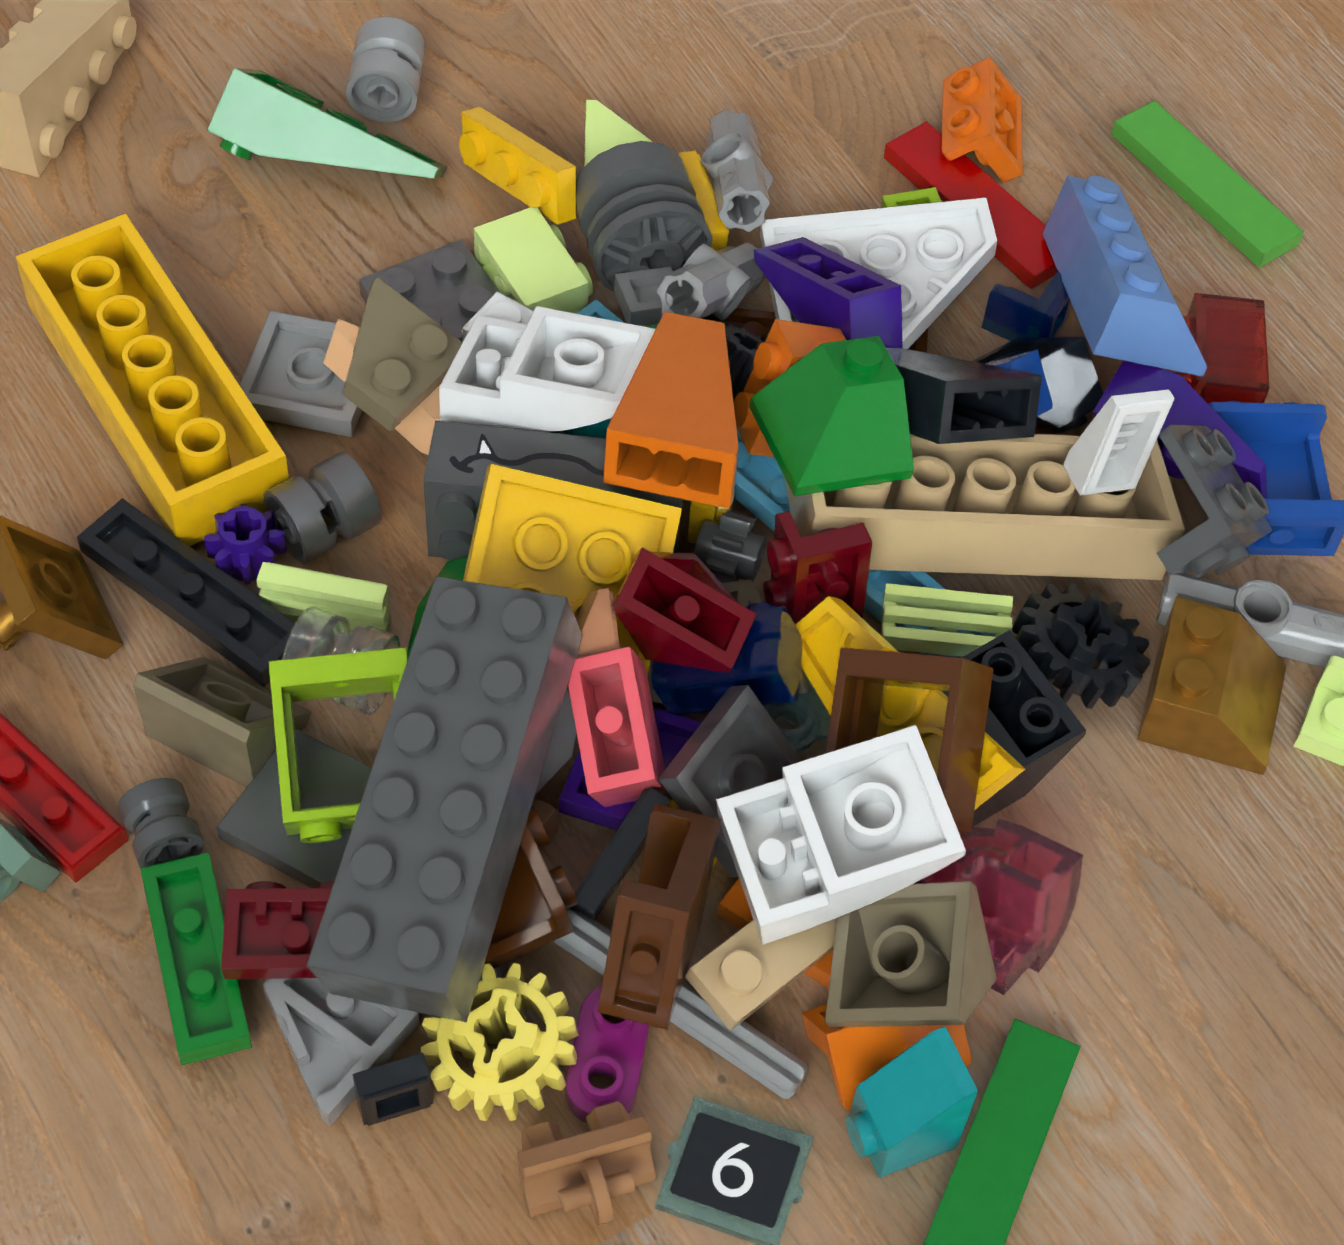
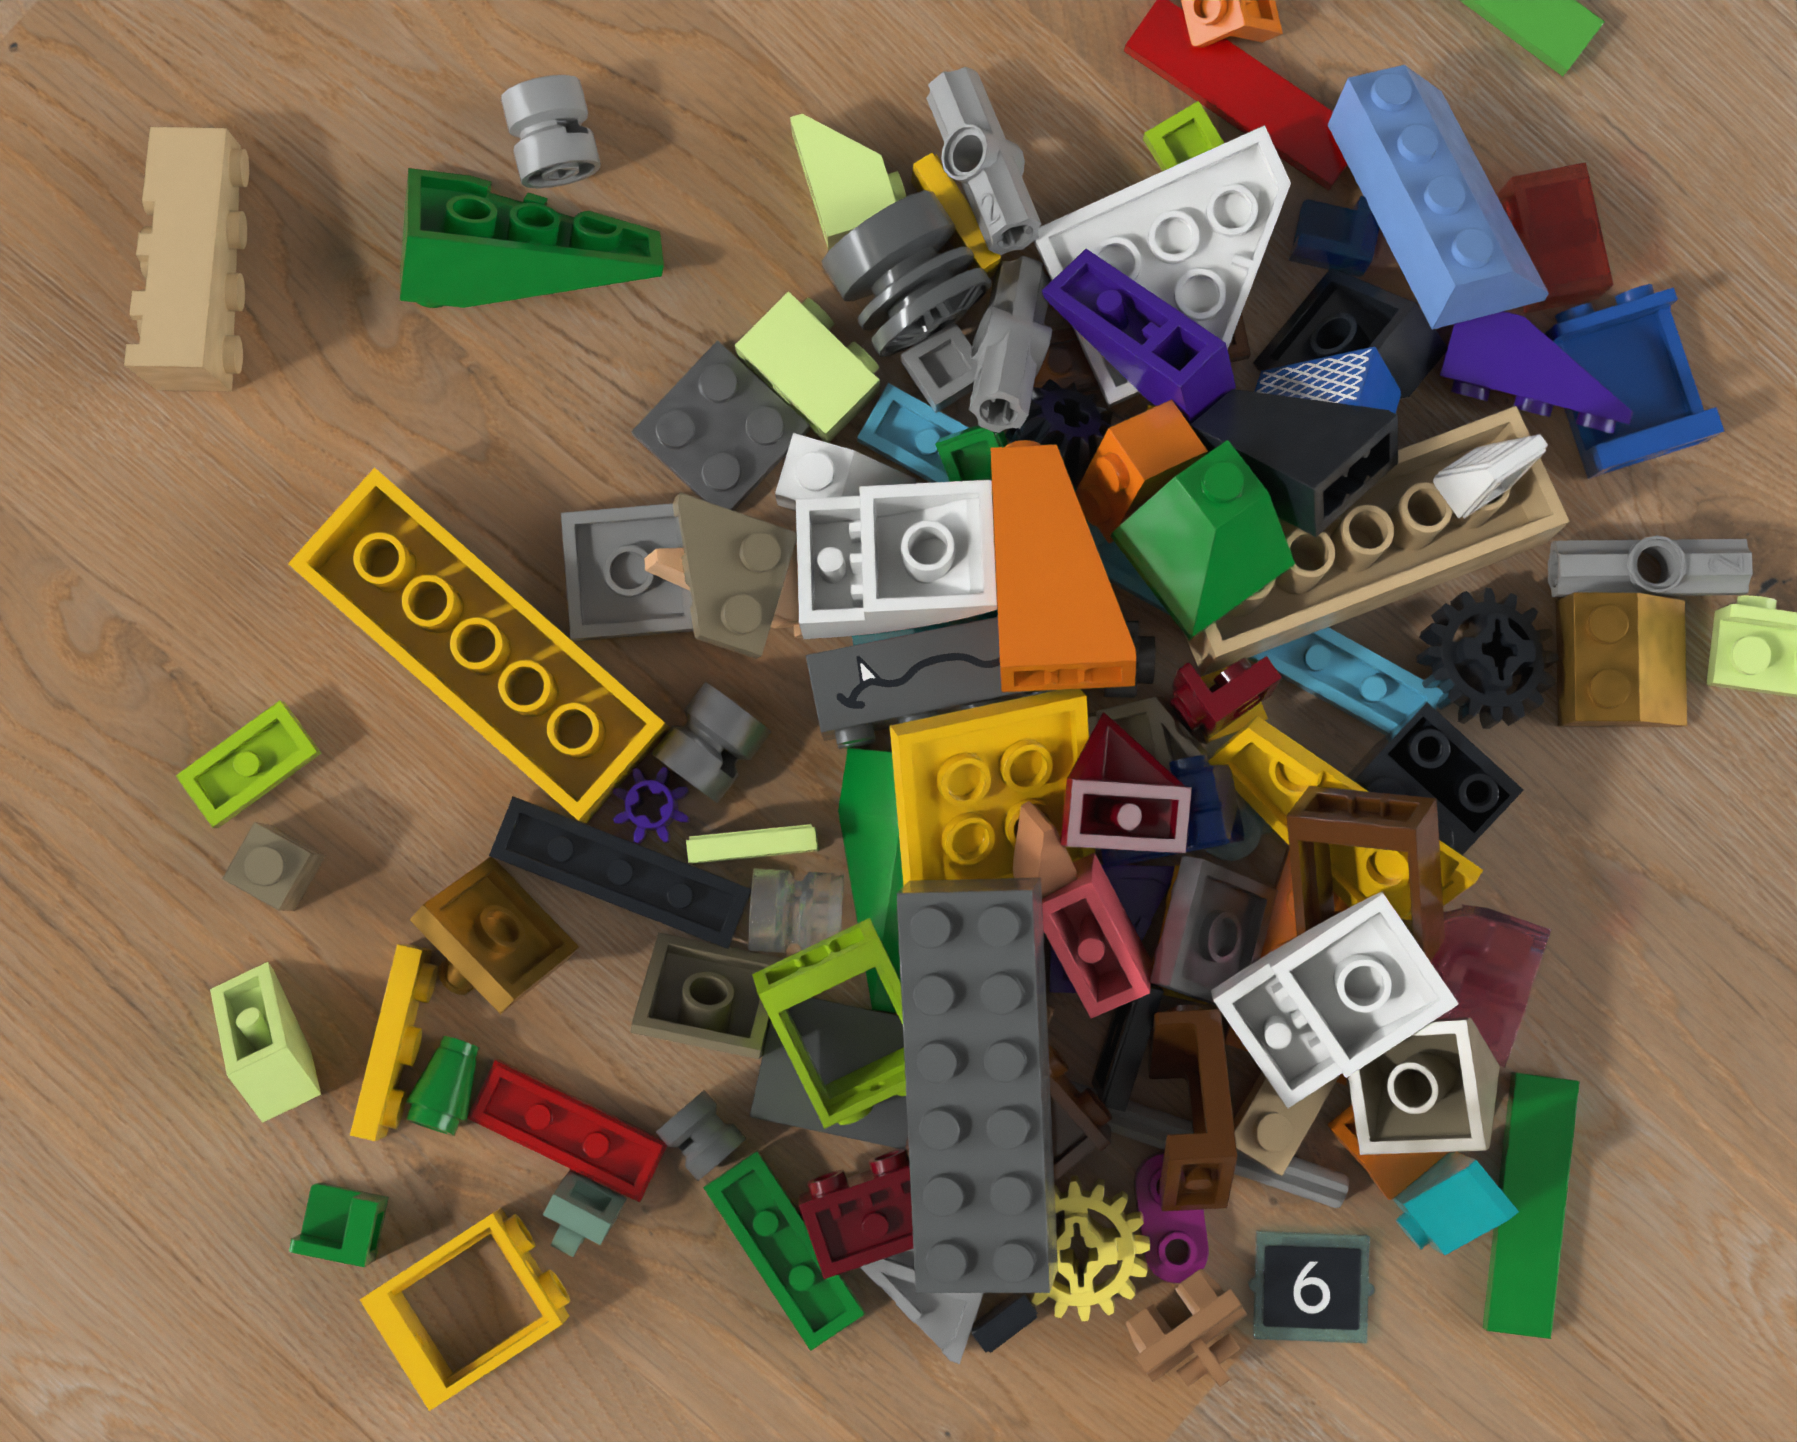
camera: 15 degrees left, 30 degrees up
(518, 165) = (748, 237): yellow plate -> none
(946, 614) = (1409, 672): yellowish green tile -> none
(1233, 507) = (1597, 478): dark grey bracket -> none

